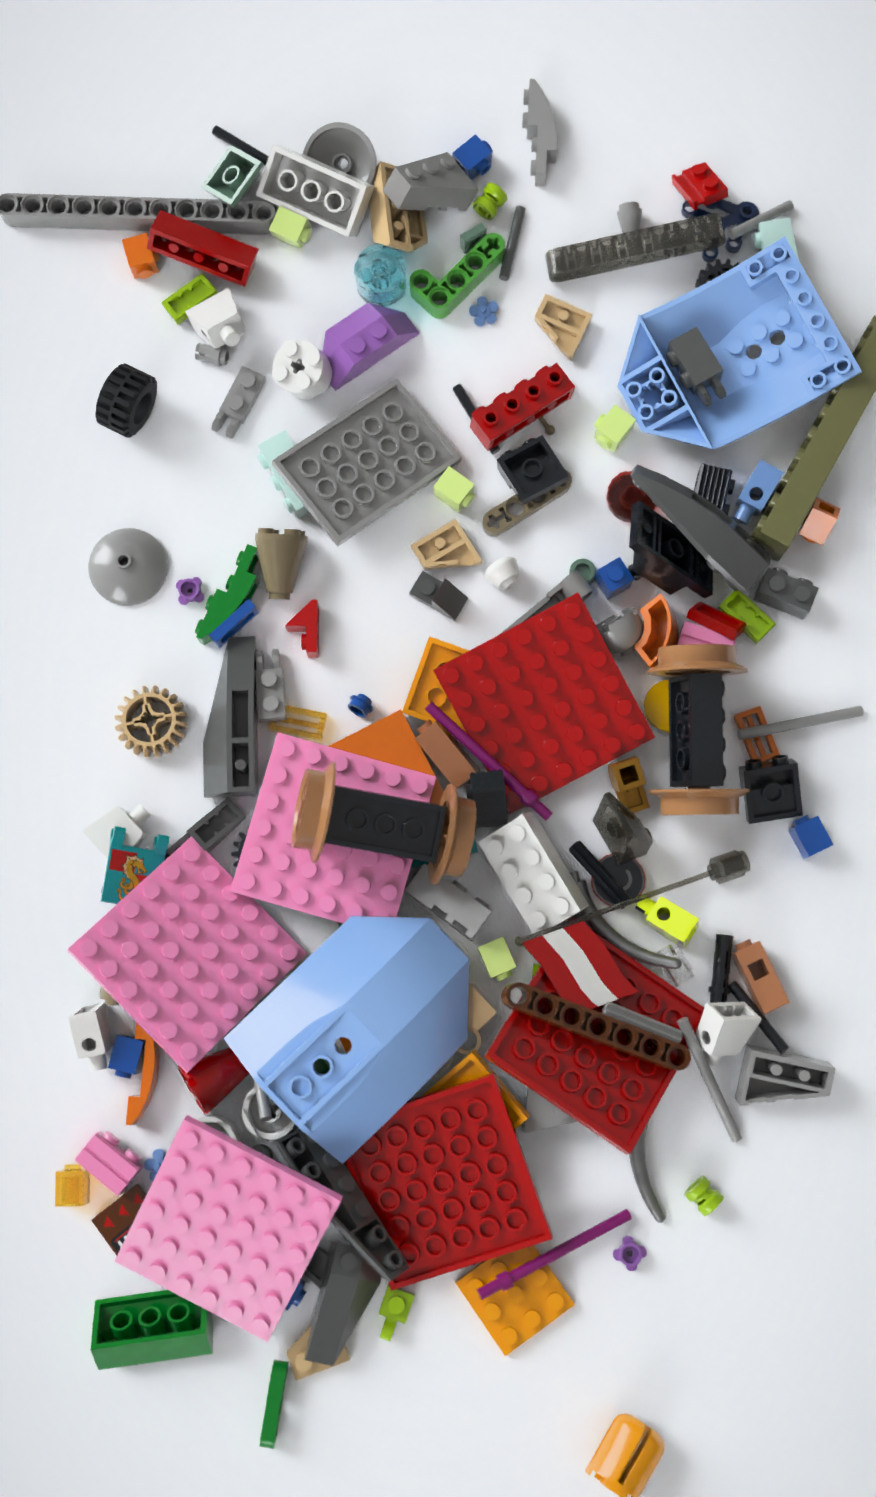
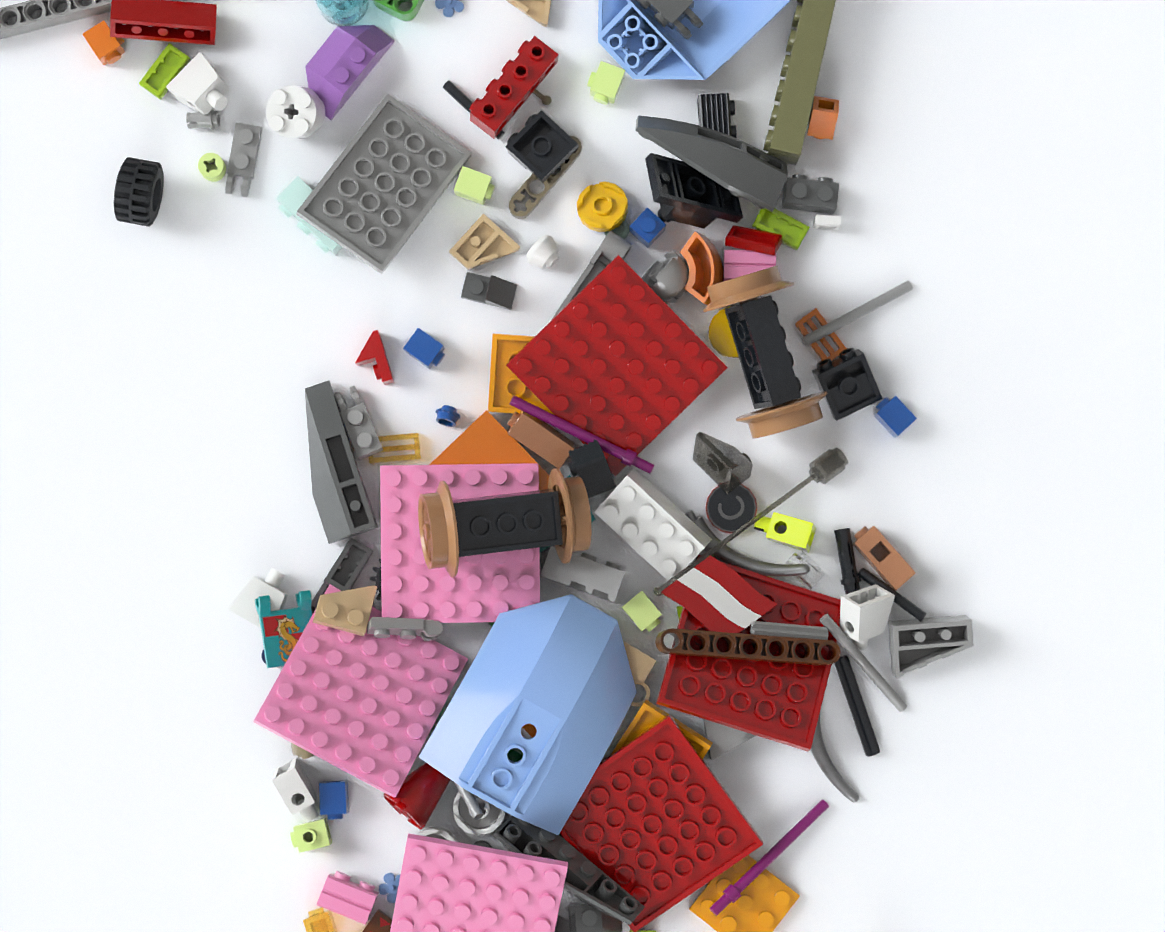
camera: 20 degrees left, 5 degrees up
(93, 1086) = (311, 835): none -> yellowish green brick
(137, 579) = (200, 361): light grey dish -> none
(138, 1103) = (355, 838): orange slope -> none
(139, 723) = (247, 493): tan gear -> none
(186, 584) = (247, 351): medium lavender plate -> none
(198, 866) = (346, 609): none -> tan wing
(206, 407) = (216, 170): none -> yellowish green wheel
(234, 623) = (306, 374): blue tile -> none
(239, 589) = (294, 360): green slope -> none
(253, 902) = (405, 627): none -> light grey hinge
(280, 559) = (331, 301): dark tan cone -> none
(358, 633) = (425, 349): none -> blue brick
(575, 546) = (602, 206): none -> yellow tile
(599, 872) = (712, 506): black axle -> none
(623, 494) = (634, 147): clear red tile -> none
(628, 782) = (716, 417): pearl gold brick -> none
(632, 1261) = (833, 829): medium lavender plate -> none
(689, 1123) = (857, 706): none -> black axle
(704, 1195) = (887, 767): lime wheel -> none
(761, 484) = (759, 95): medium blue torso -> none
(794, 624) = (827, 222): none -> white tile

